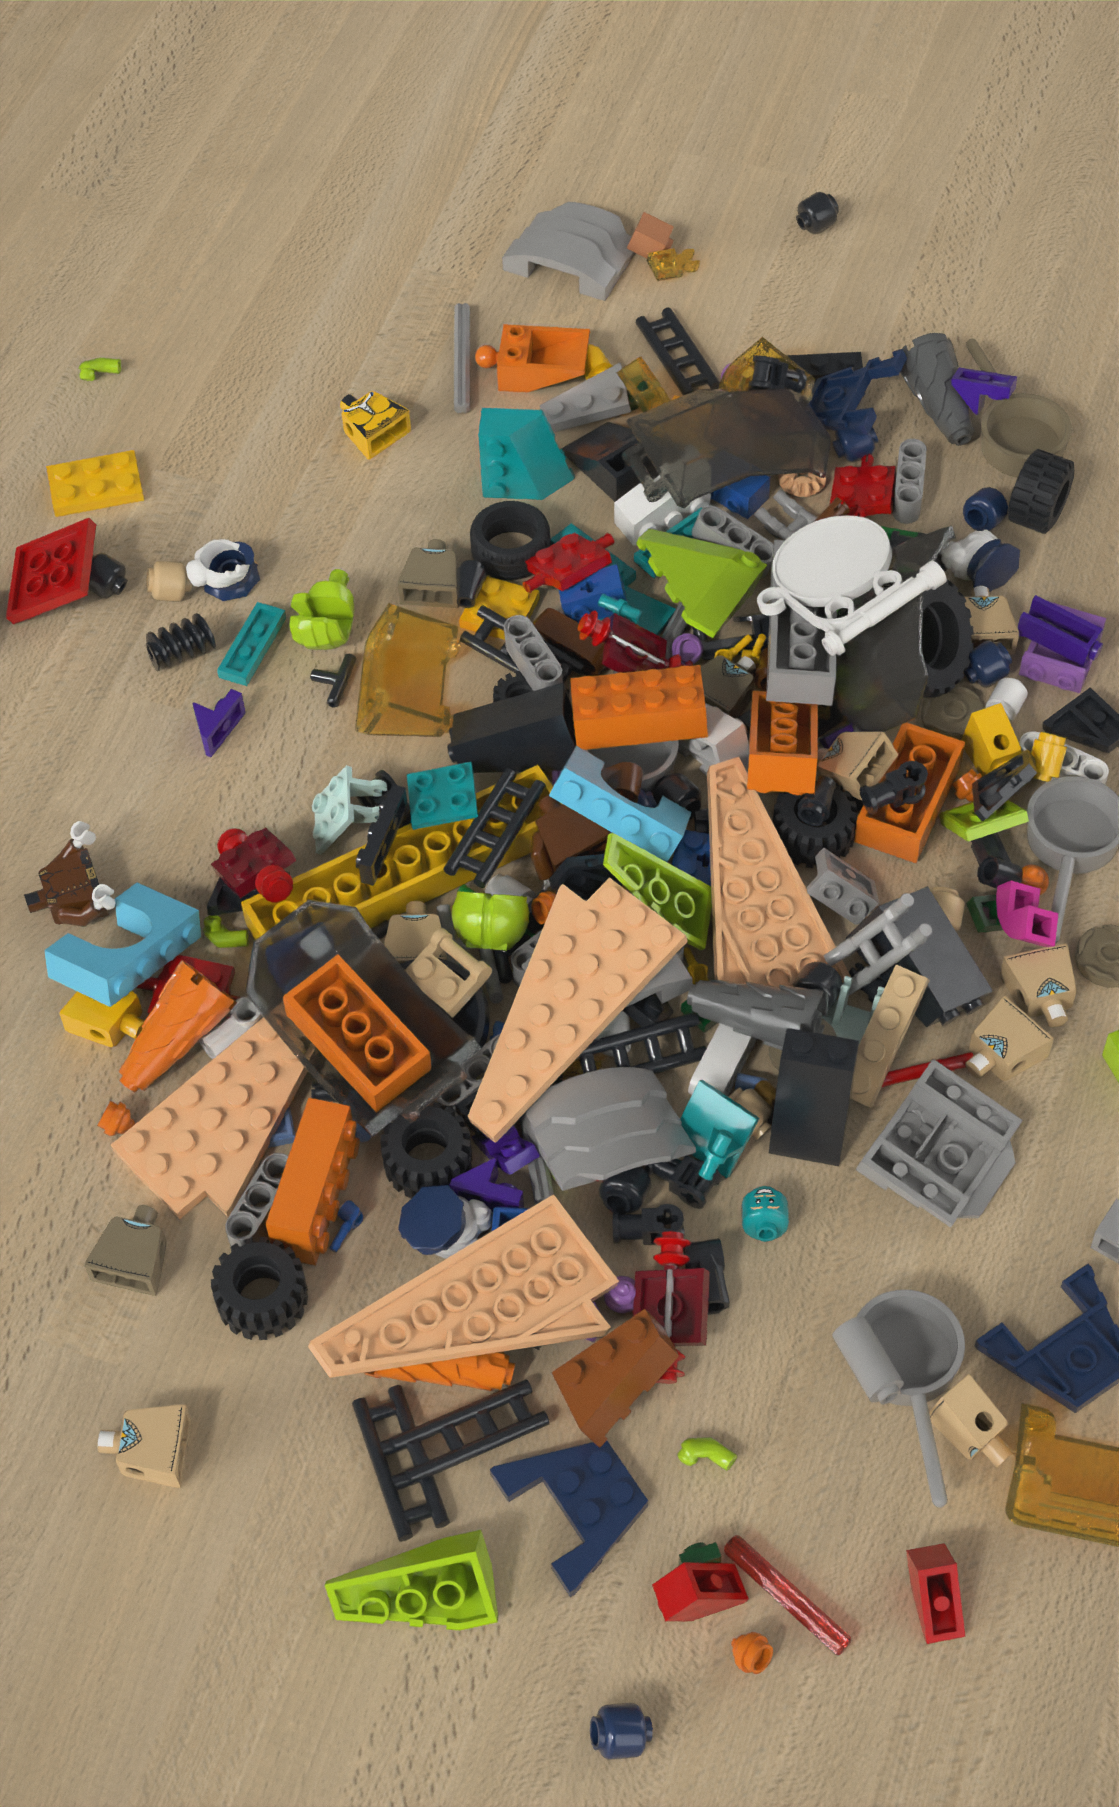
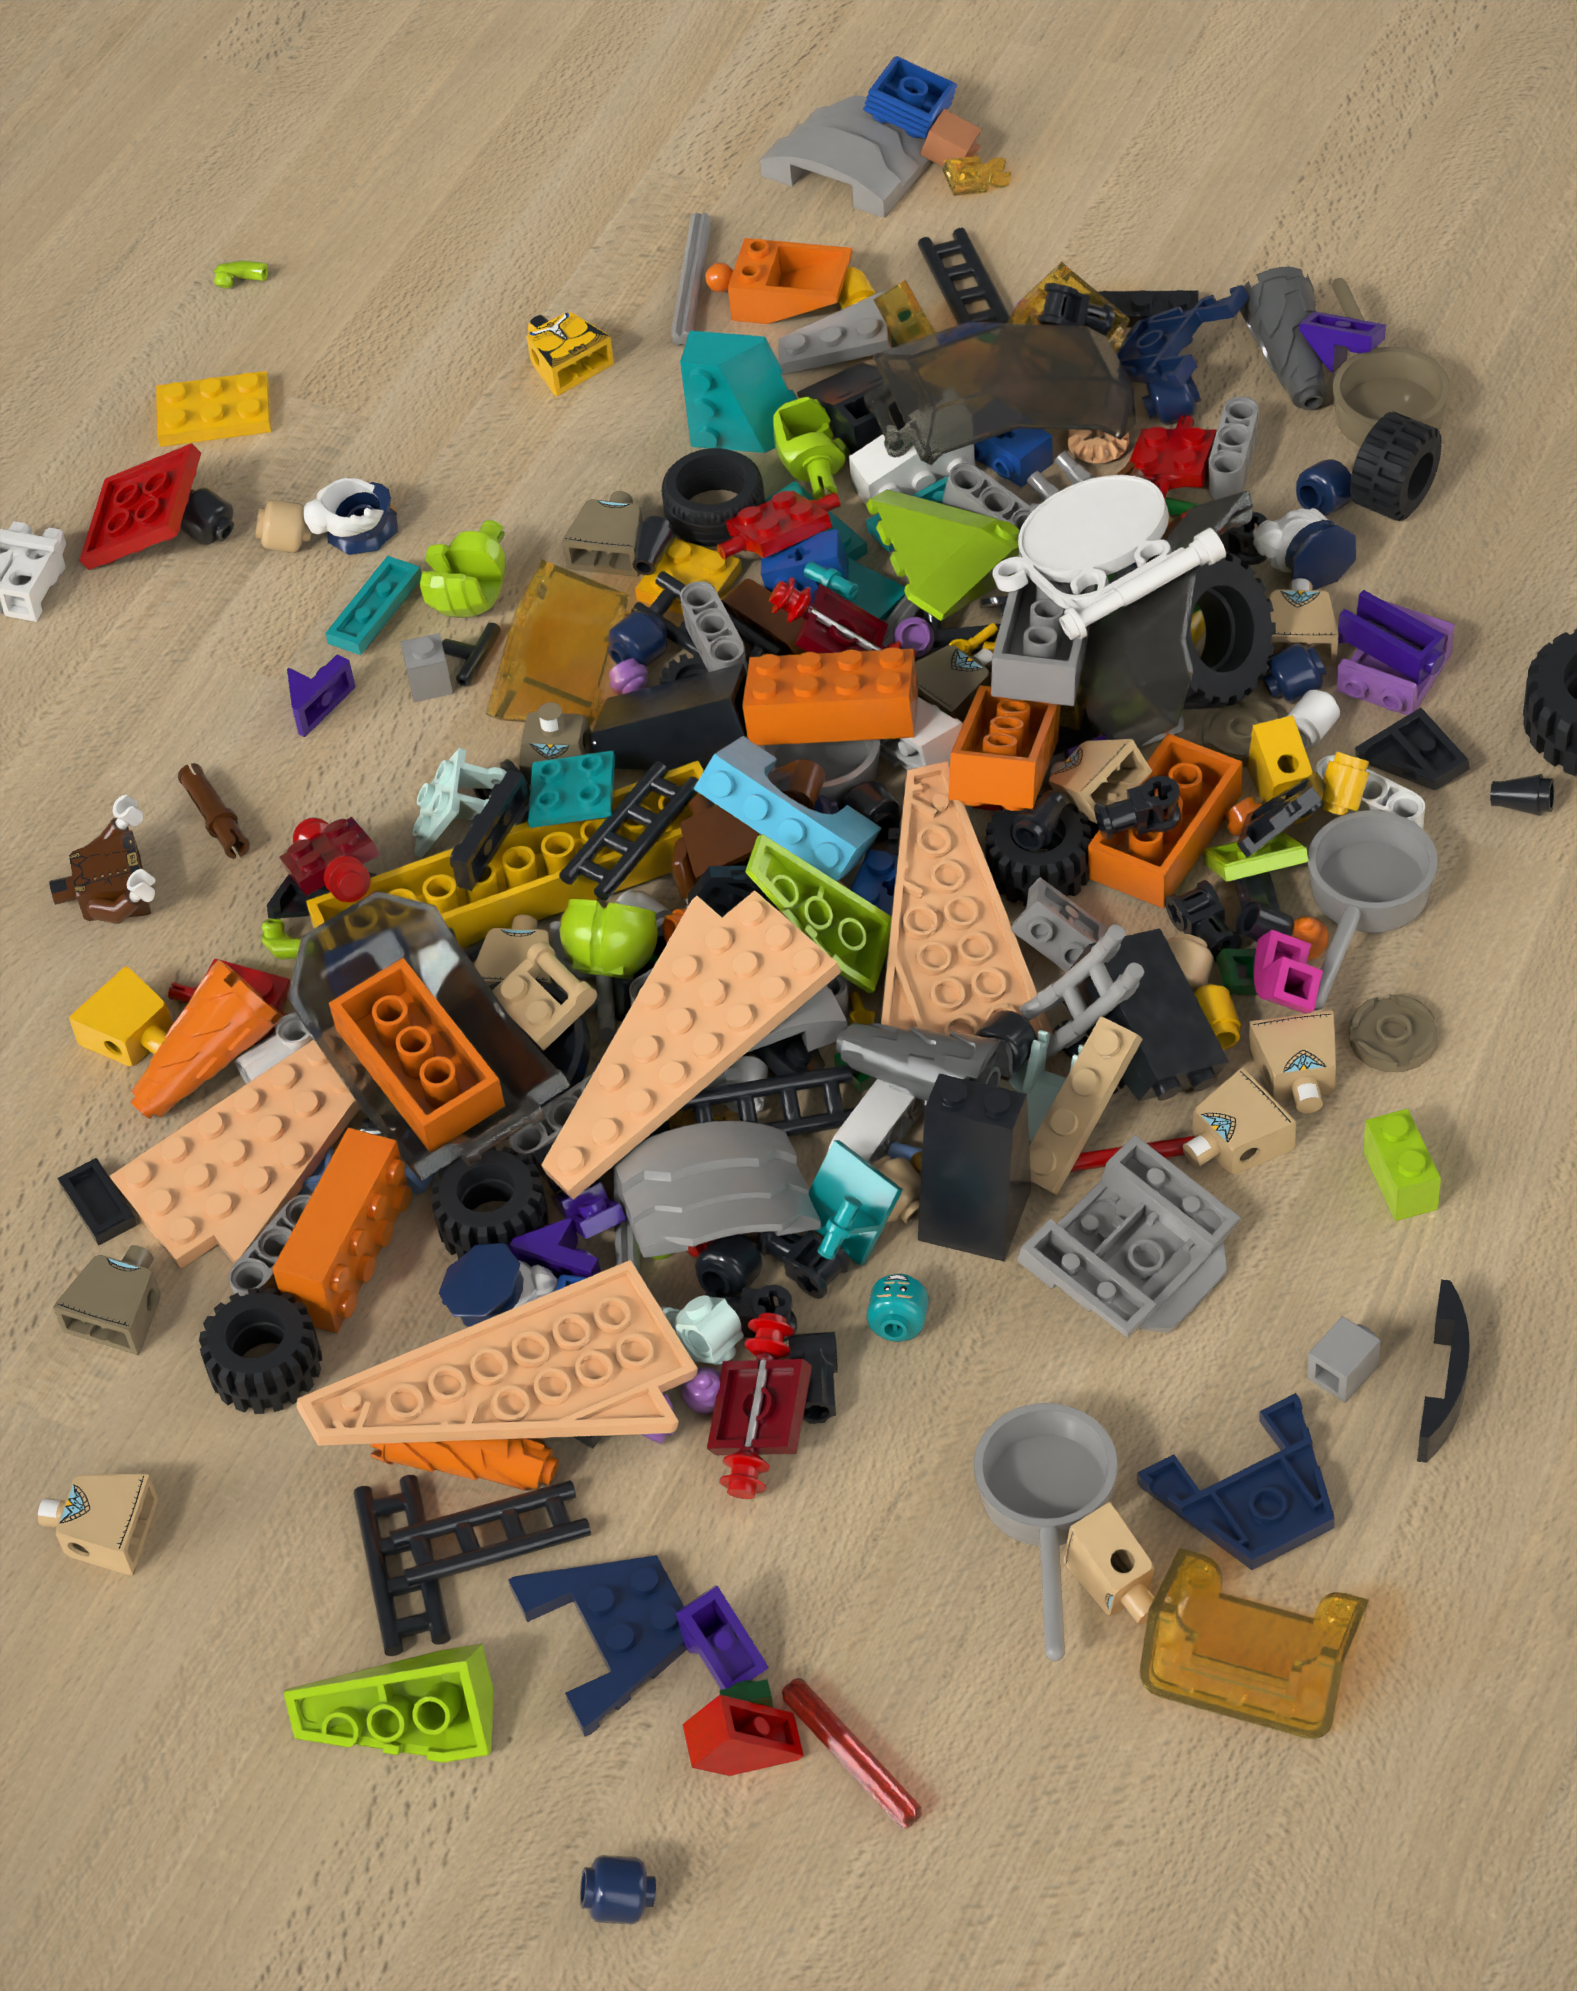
camera: 10 degrees right, 5 degrees down
(103, 1166) = (97, 1201): none -> black tile
(113, 973) = (132, 973): medium azure arch -> none
(116, 1119) = (127, 1150): orange plate -> none
(155, 834) = (219, 820): none -> reddish brown pin
(179, 640) = (284, 596): black piece -> none
(303, 695) = (426, 667): none -> light grey brick
(352, 1218) = (388, 1280): blue hand -> none
(416, 752) = (552, 735): none -> dark tan torso
(466, 695) = (628, 677): none -> medium lavender plate
(469, 663) = (638, 637): none -> dark blue head
(578, 497) = (806, 445): none -> lime piece
(613, 1373) = (673, 1473): dark orange wedge -> none
(615, 203) = (909, 97): none -> blue brick
(619, 1245) = (706, 1329): none -> light aqua connector
(671, 1510) = (720, 1639): none -> dark purple slope
(706, 1448) = (780, 1575): lime arm -> none
(752, 1652) = (795, 1814): orange plate -> none
(817, 212) = (1170, 119): black head -> none
(868, 1360) = (987, 1478): light grey brick -> none
(936, 1592) = (1036, 1764): red slope -> none
(949, 869) = (1202, 916): none -> black connector
(978, 948) = (1220, 1013): none -> yellow brick

